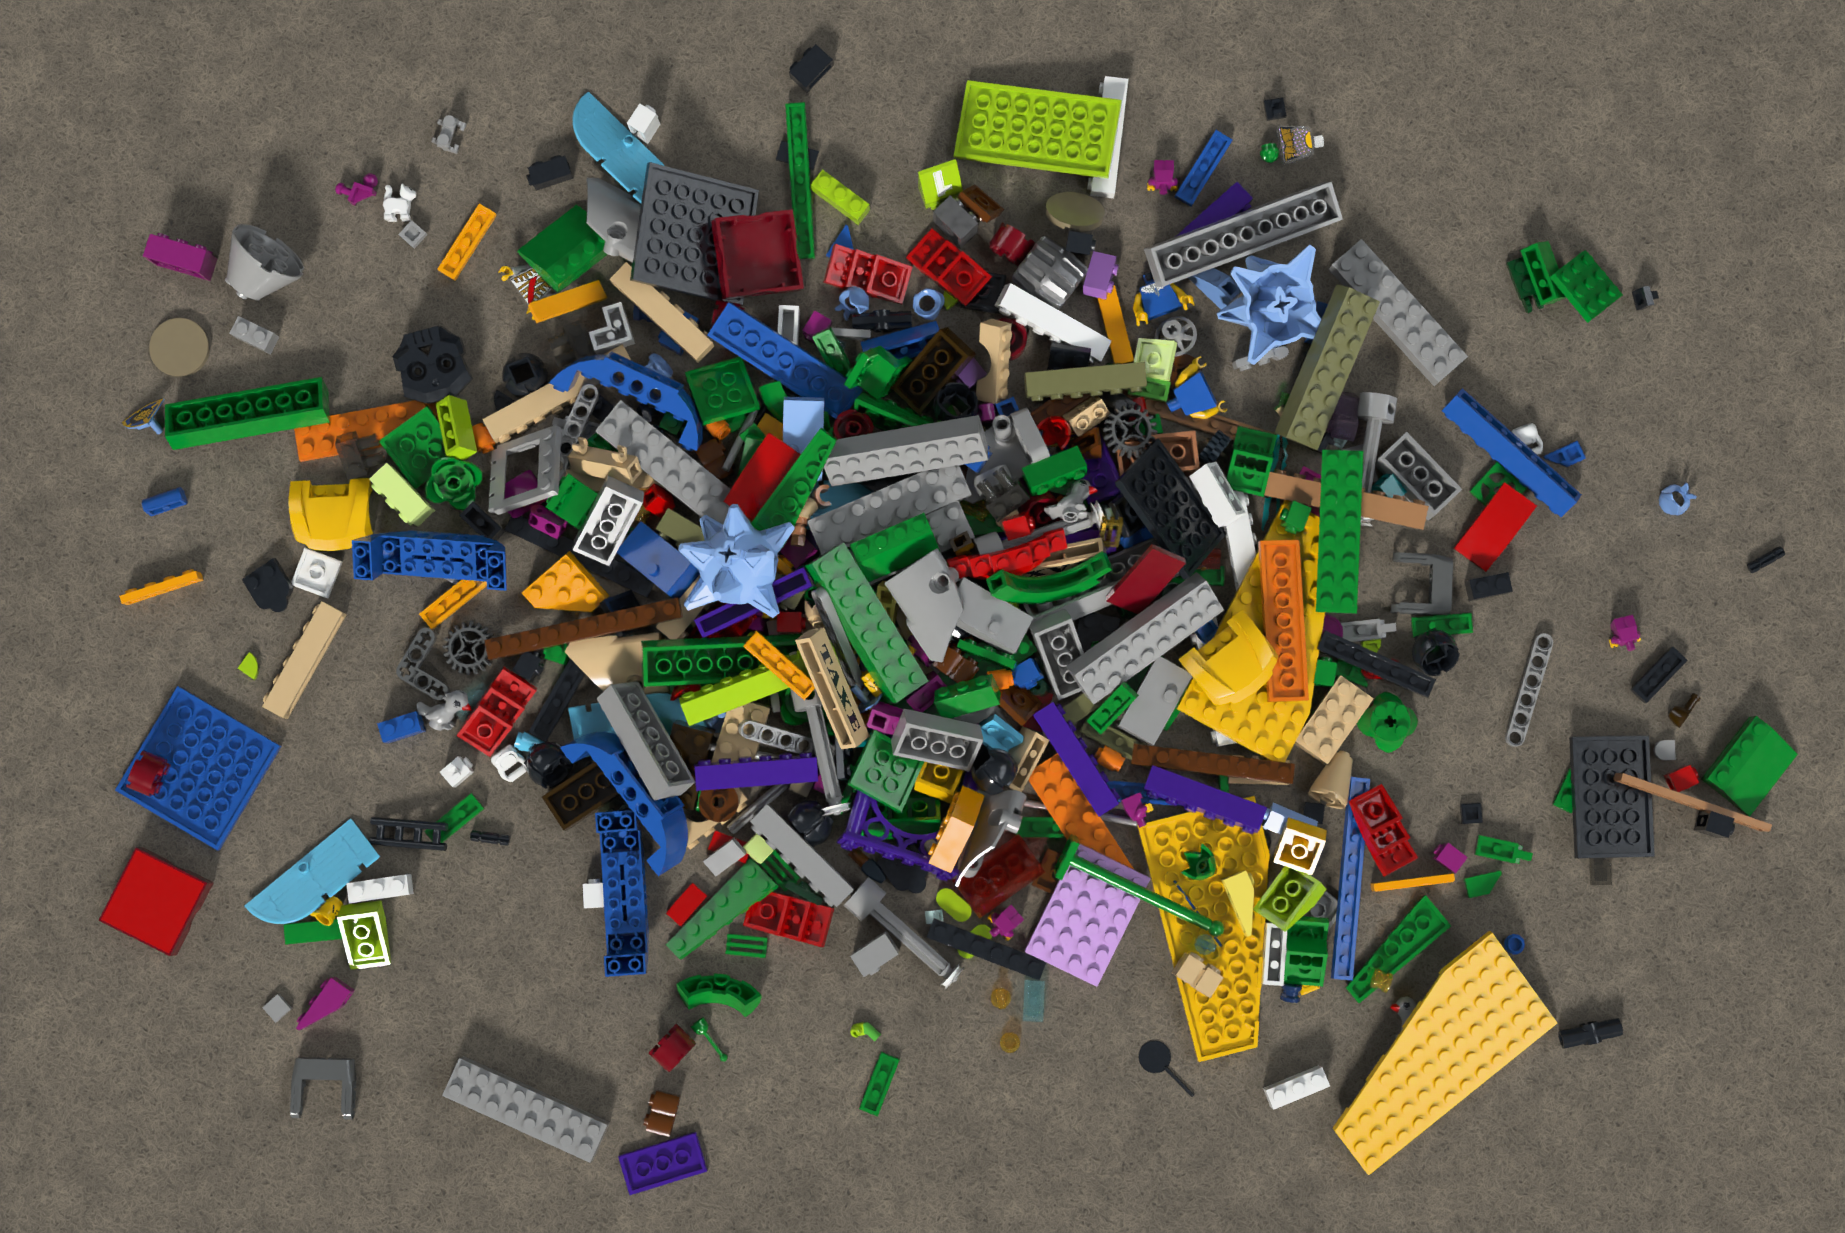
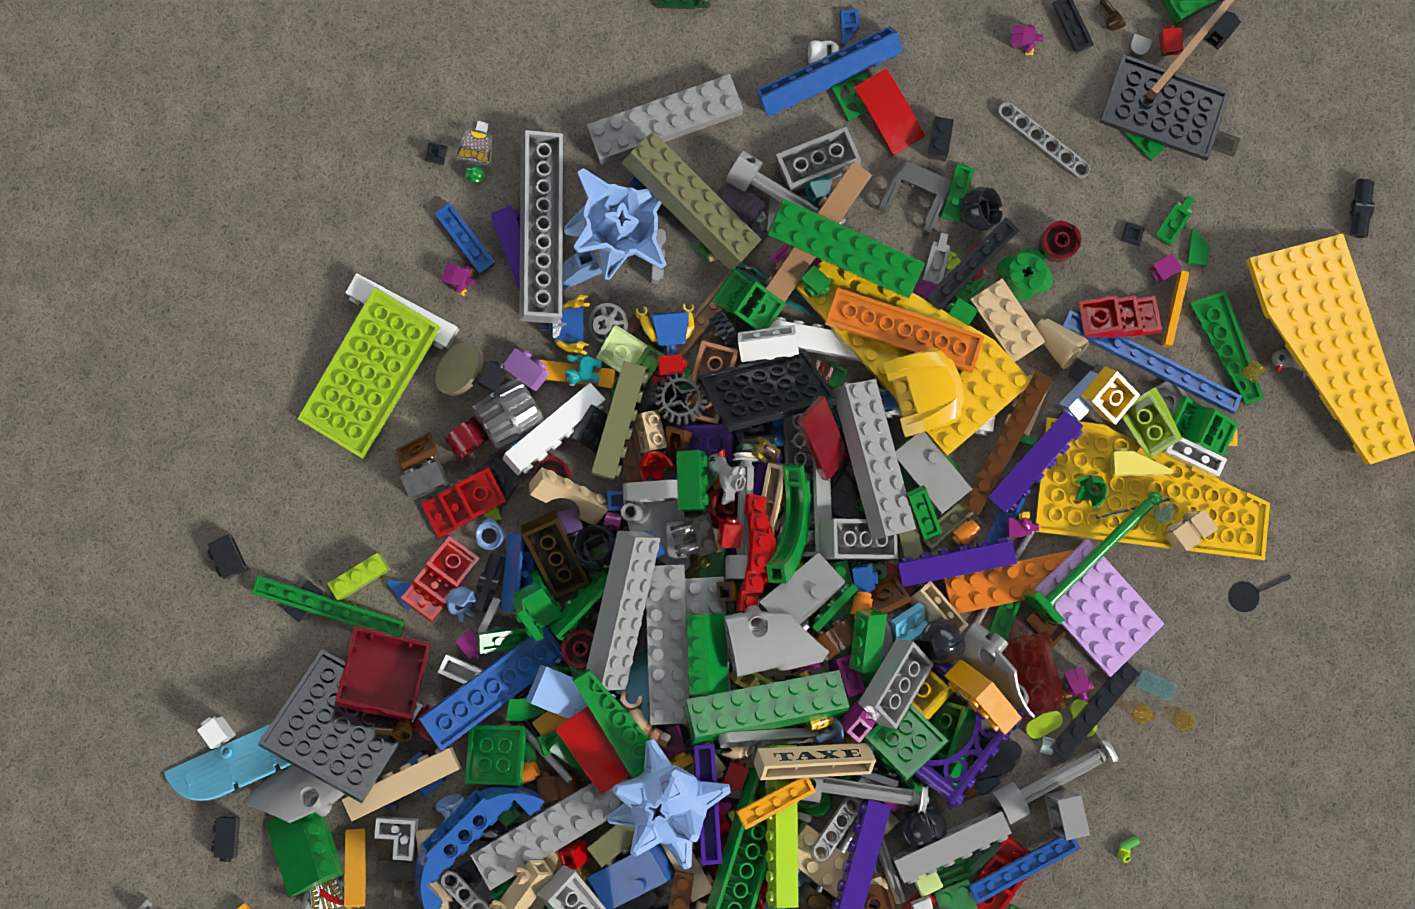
camera: 75 degrees left, 0 degrees up
(710, 292) = (401, 731): none -> dark brown bar
(808, 934) = (1022, 868): none -> blue tile
(879, 1084) = (1179, 853): green tile -> none
(939, 183) = (385, 481): lime slope -> none
(1121, 332) = (585, 372): none -> teal animal
(1160, 410) = (672, 364): none -> red brick
(1291, 993) = (1233, 454): dark blue wheel -> none
(1296, 1087) = (1317, 482): white brick -> none
(1422, 742) = (1064, 232): none -> dark red brick
(1514, 944) = (1260, 243): blue plate -> none

